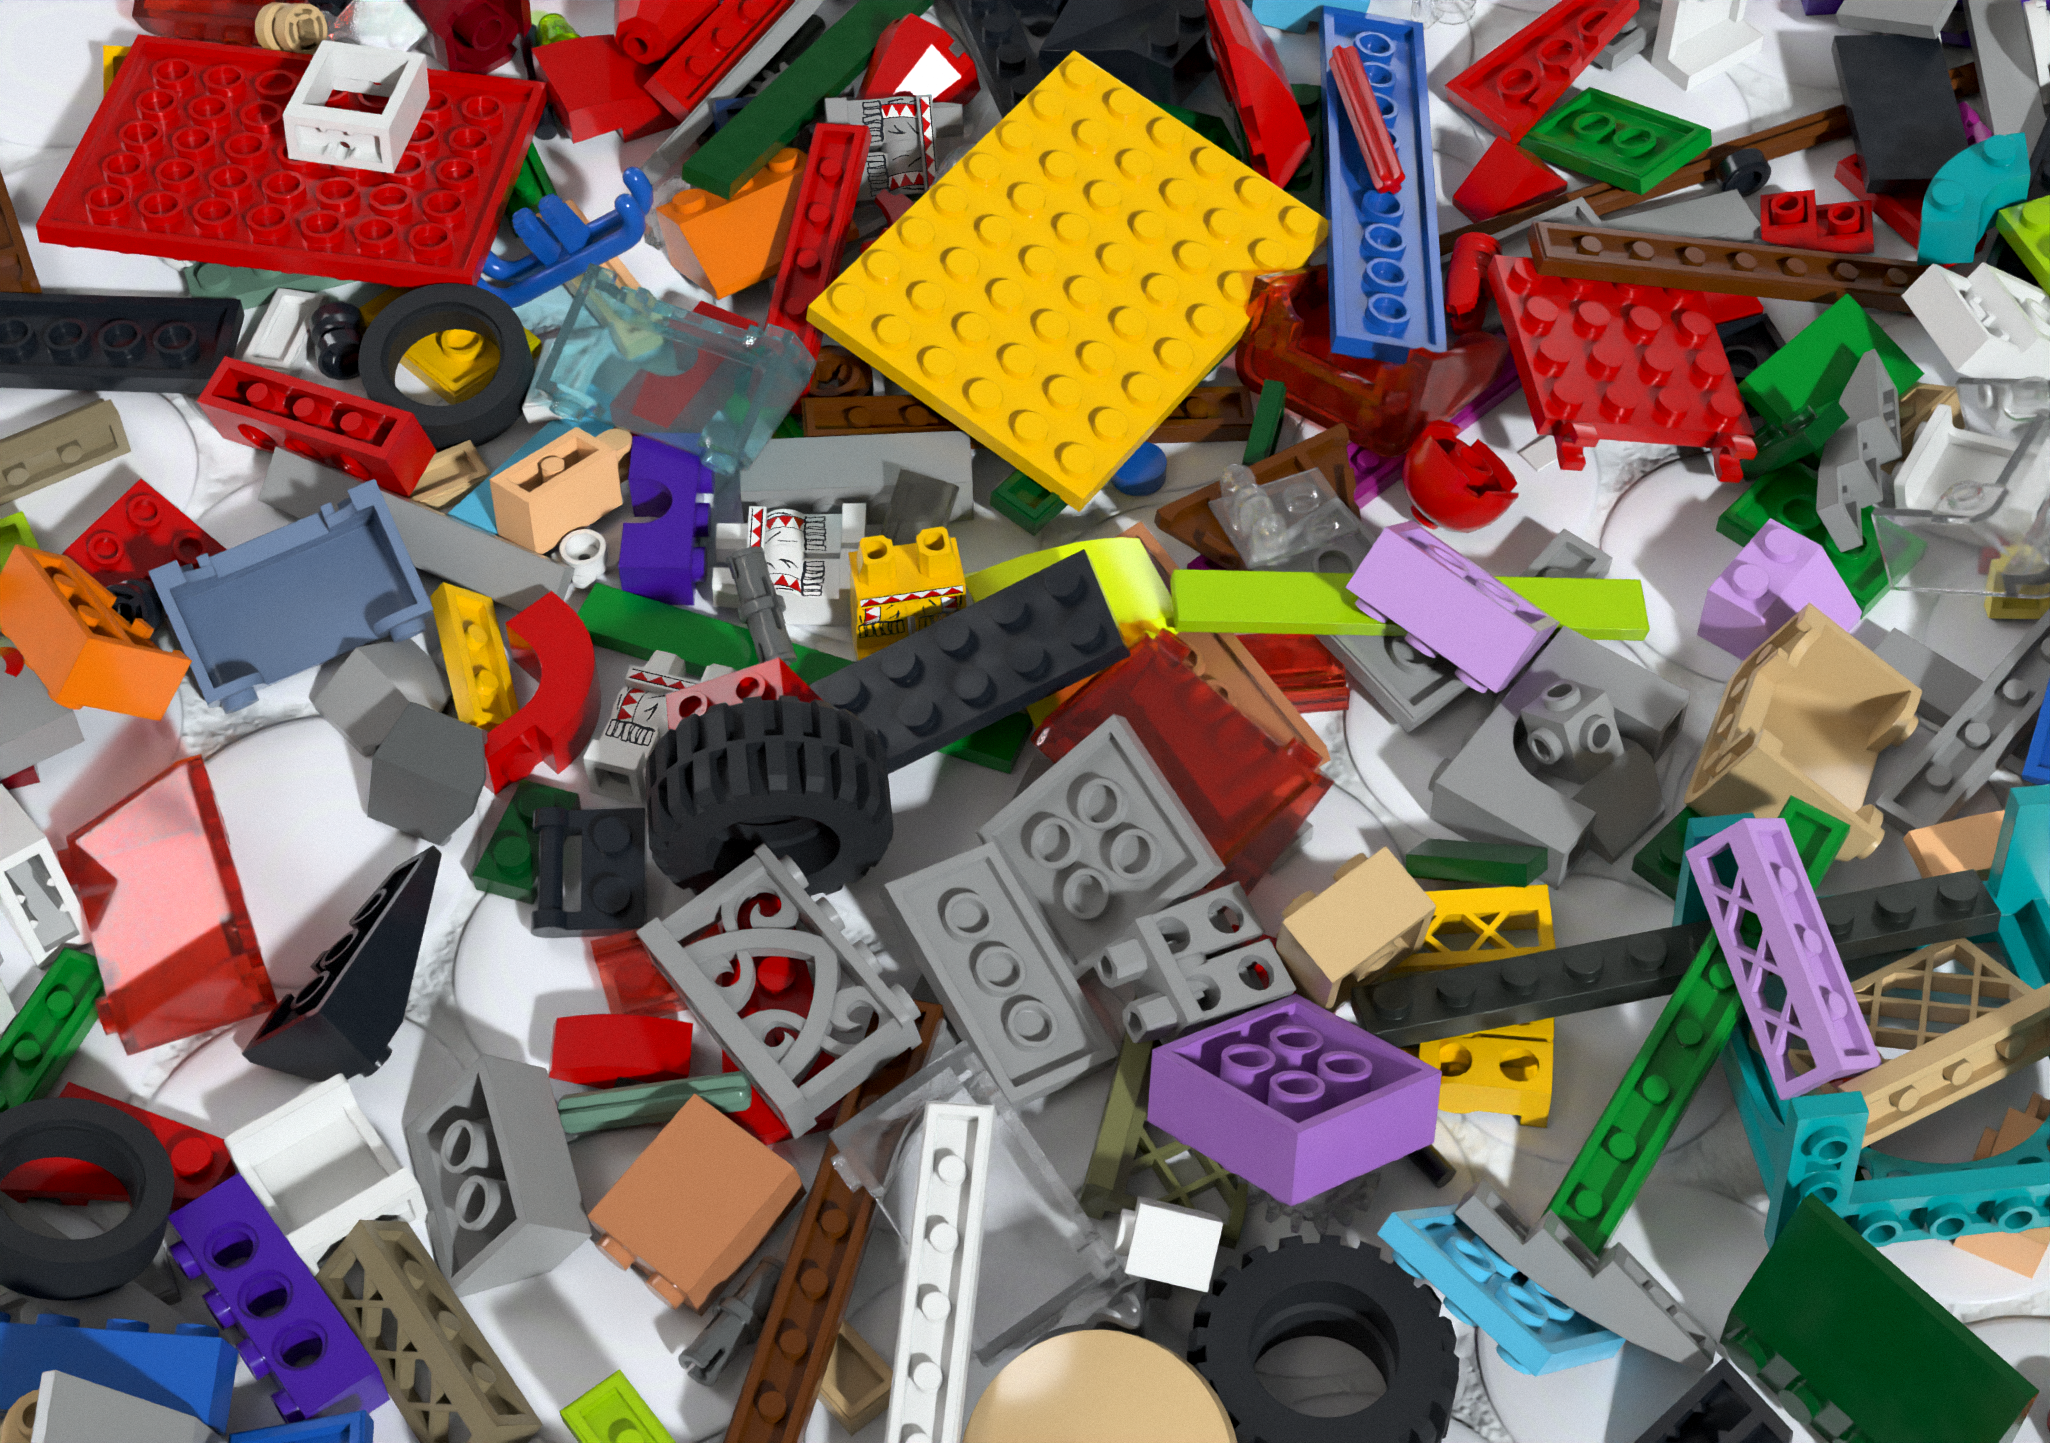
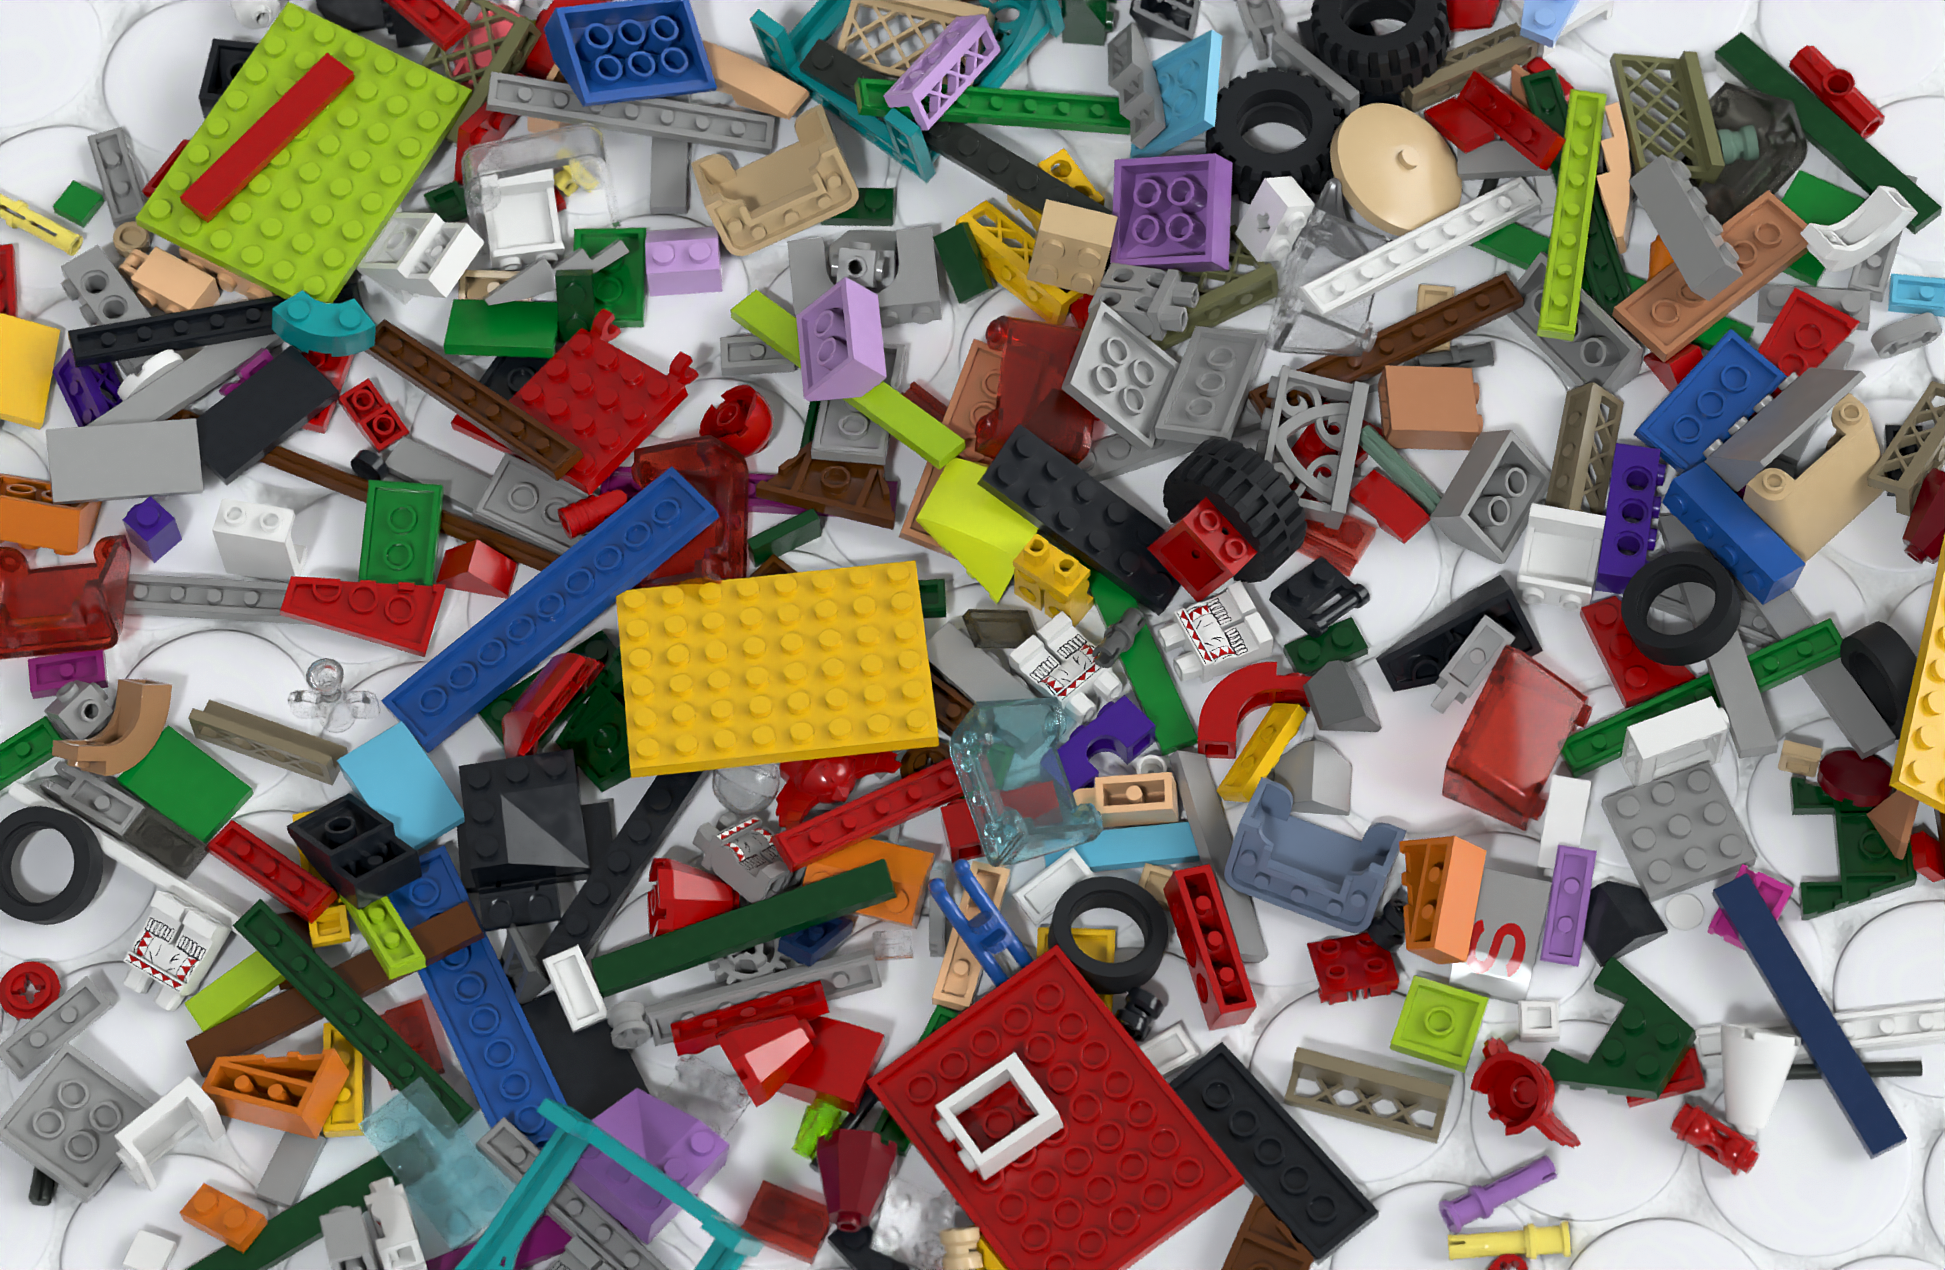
camera: 130 degrees left, 10 degrees up
(304, 935) = (1471, 663): none -> light grey hinge
(663, 272) = (937, 921): none -> light grey tile
(1279, 516) = (854, 452): clear hinge -> none
(1366, 120) = (519, 633): red axle -> none

